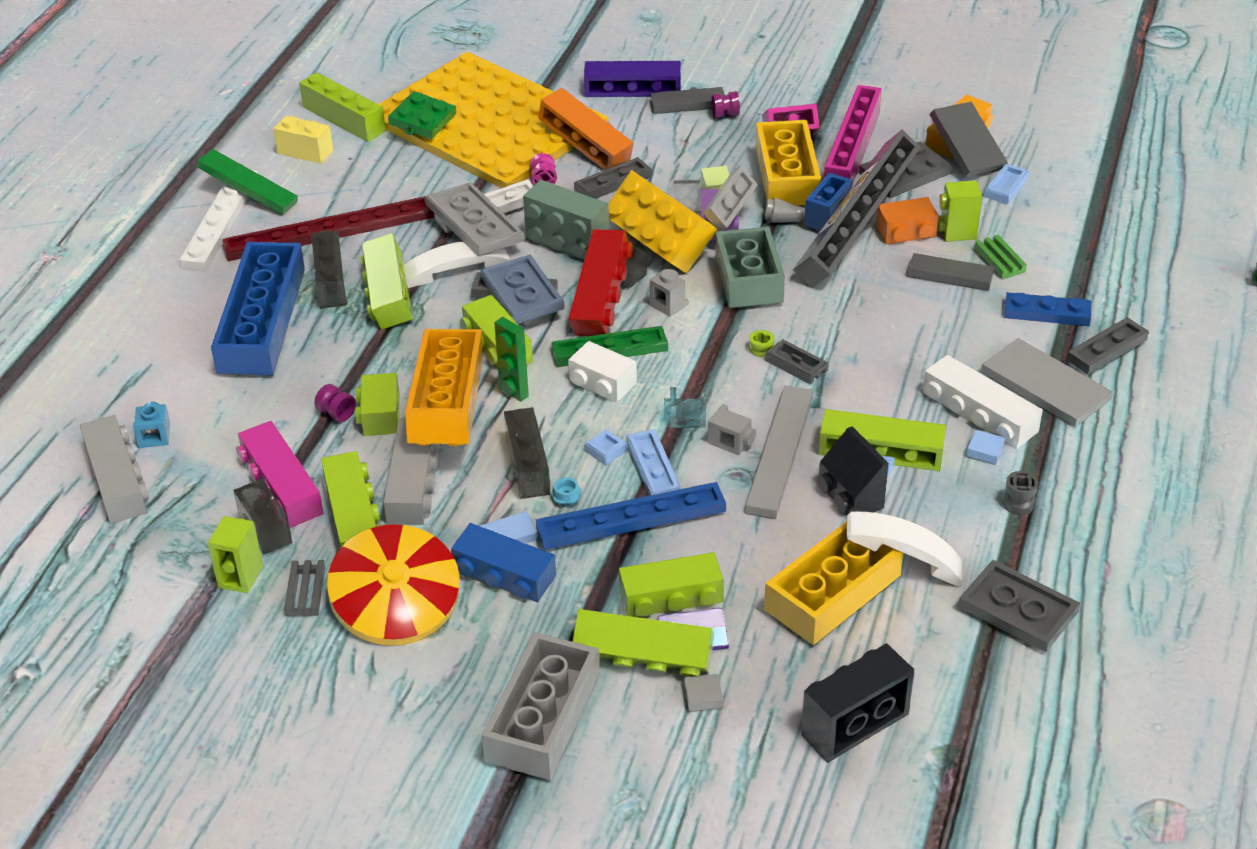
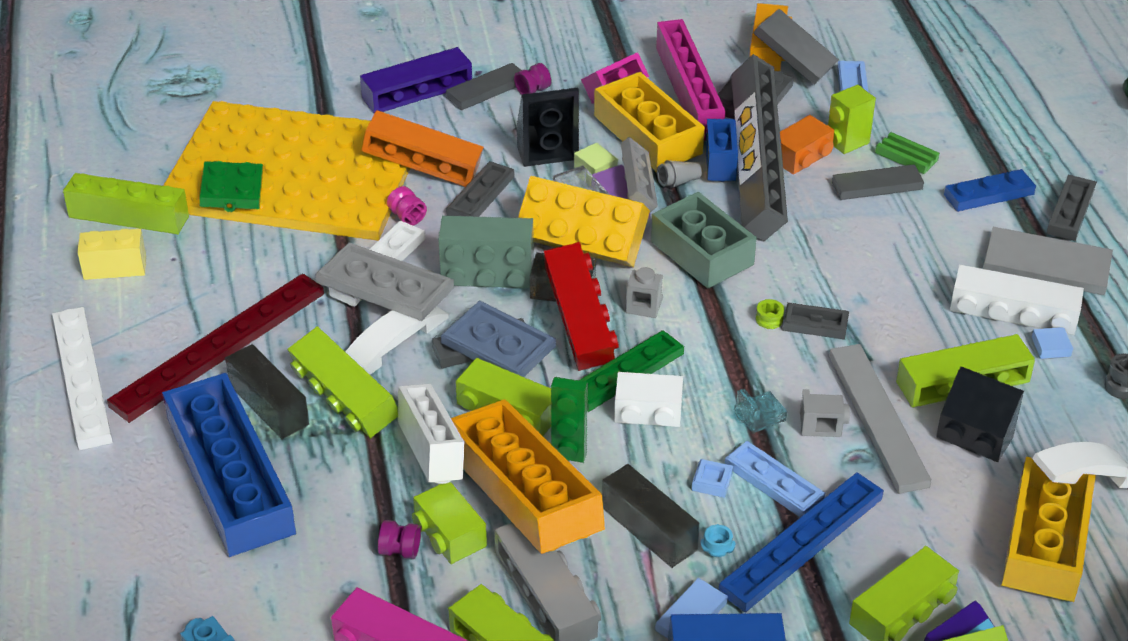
camera: 30 degrees left, 0 degrees up
(247, 181) = (88, 323): green tile -> none
(403, 334) = (430, 433): none -> white brick
(692, 139) = (548, 126): none -> black slope

